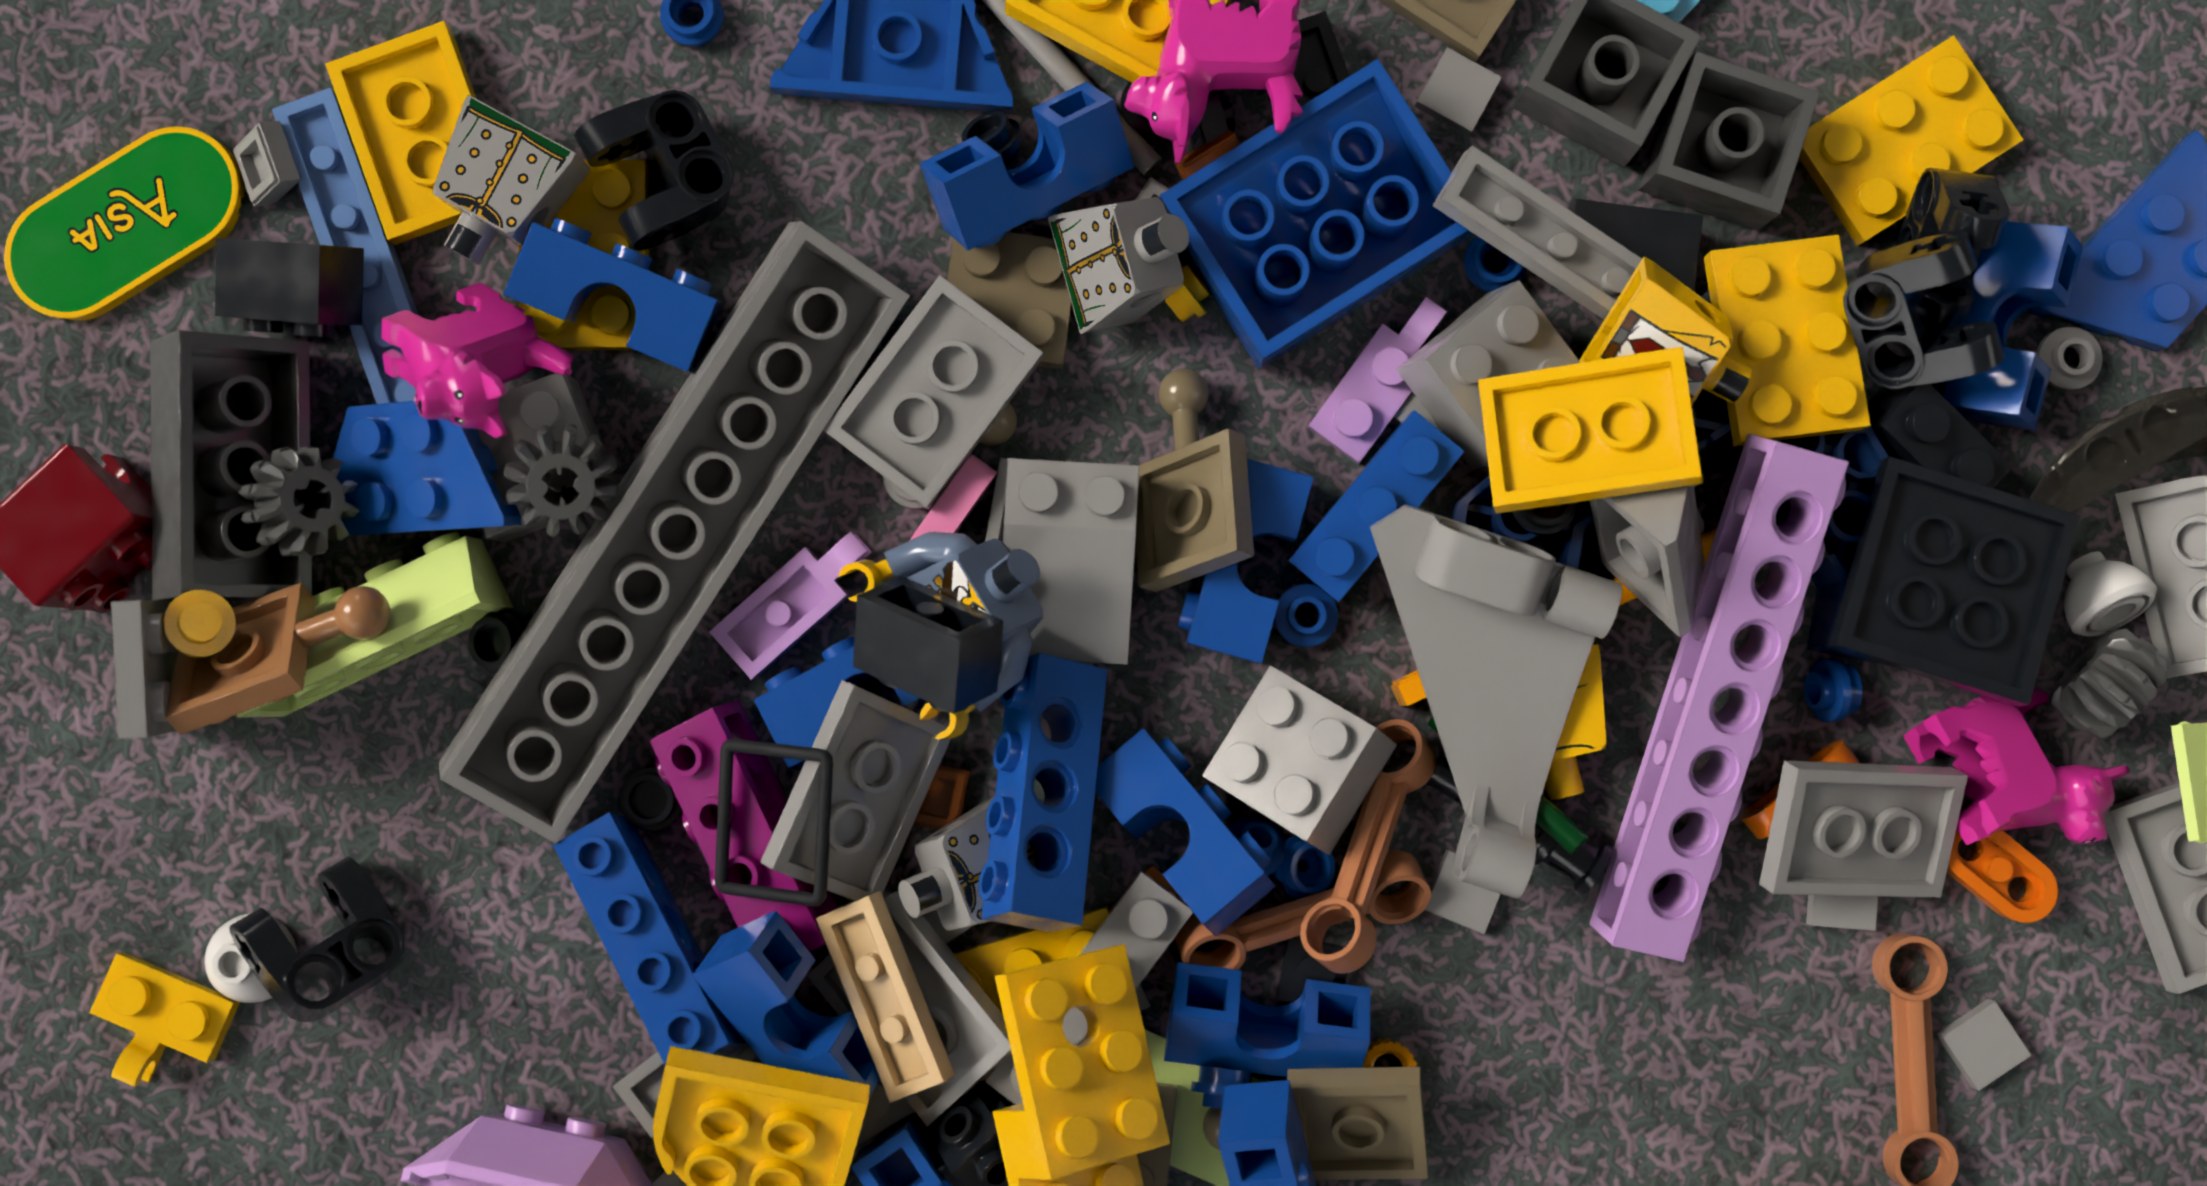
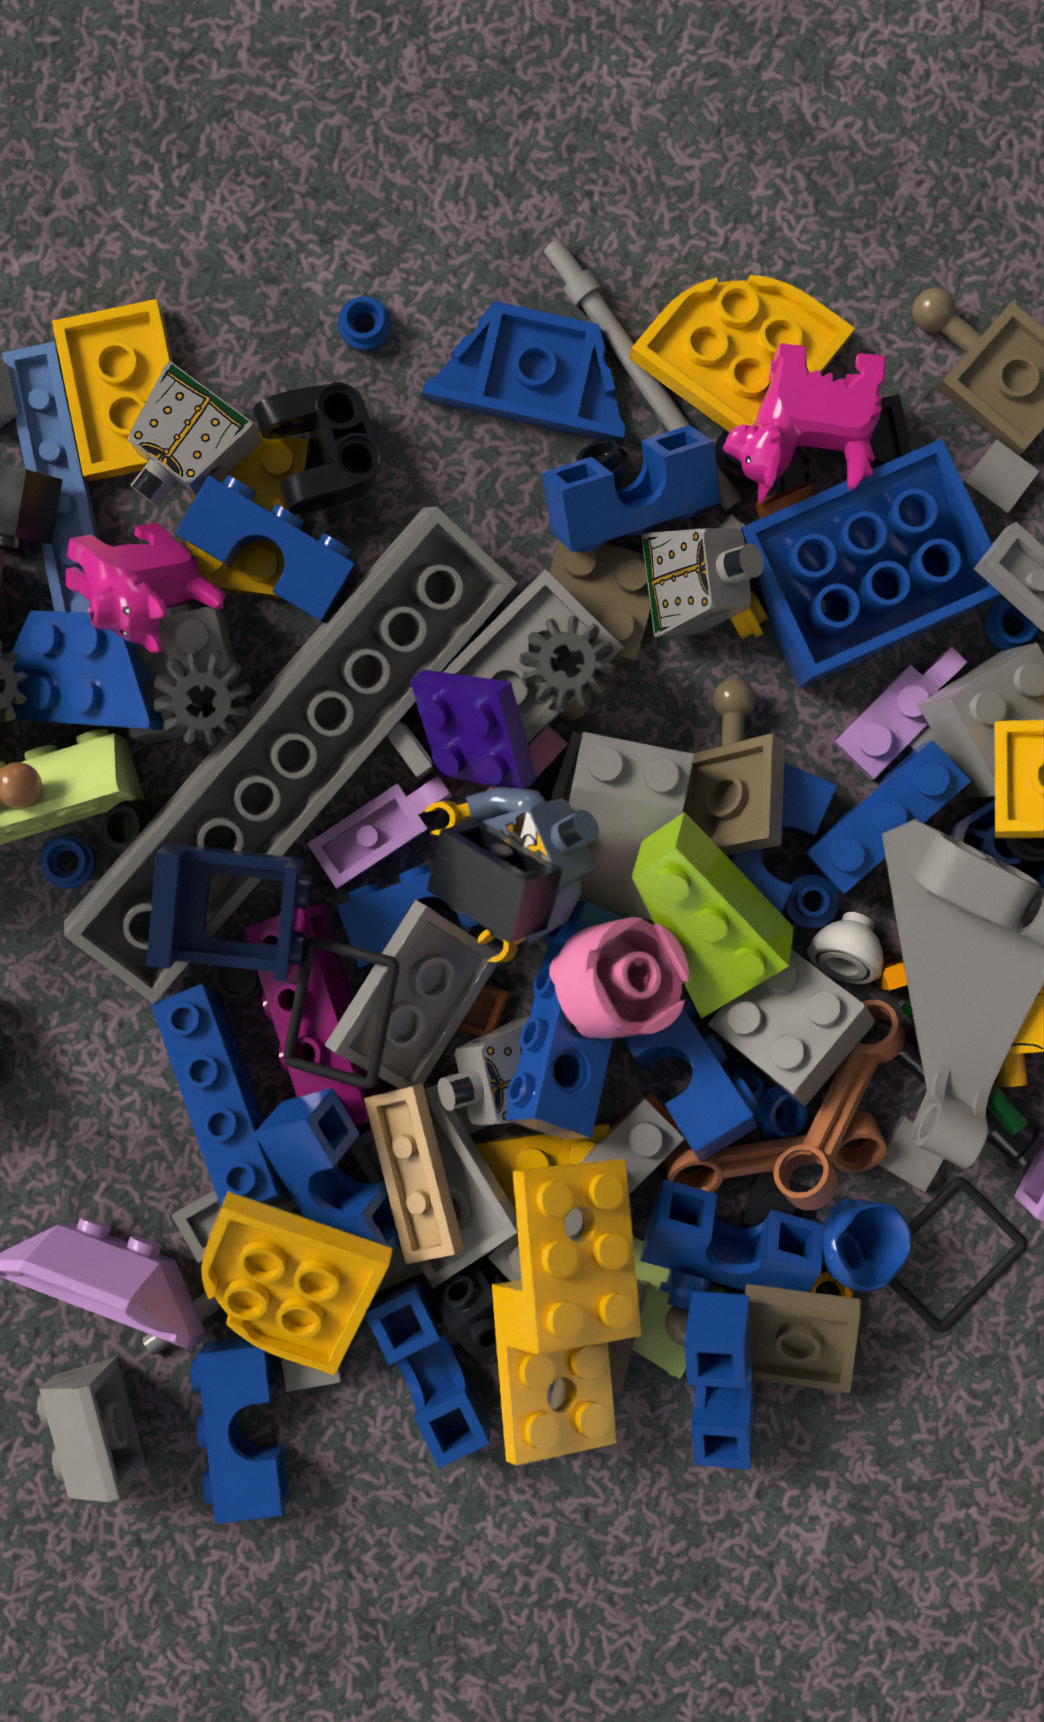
camera: 10 degrees right, 0 degrees up
(414, 692) = (52, 856): none -> blue plate
(571, 723) = (181, 908): none -> dark blue window
(816, 506) = (411, 750): none -> light grey tile
(881, 472) = (473, 729): none -> dark purple plate
(987, 362) = (576, 647): none -> dark grey gear
(1089, 737) = (620, 978): none -> bright pink brick
(1183, 649) = (713, 911): none -> lime wedge
(1356, 666) = (848, 950): none -> white brick
(1420, 1003) = (865, 1243): none -> blue hair
(1568, 1032) = (980, 1288): none -> black piece

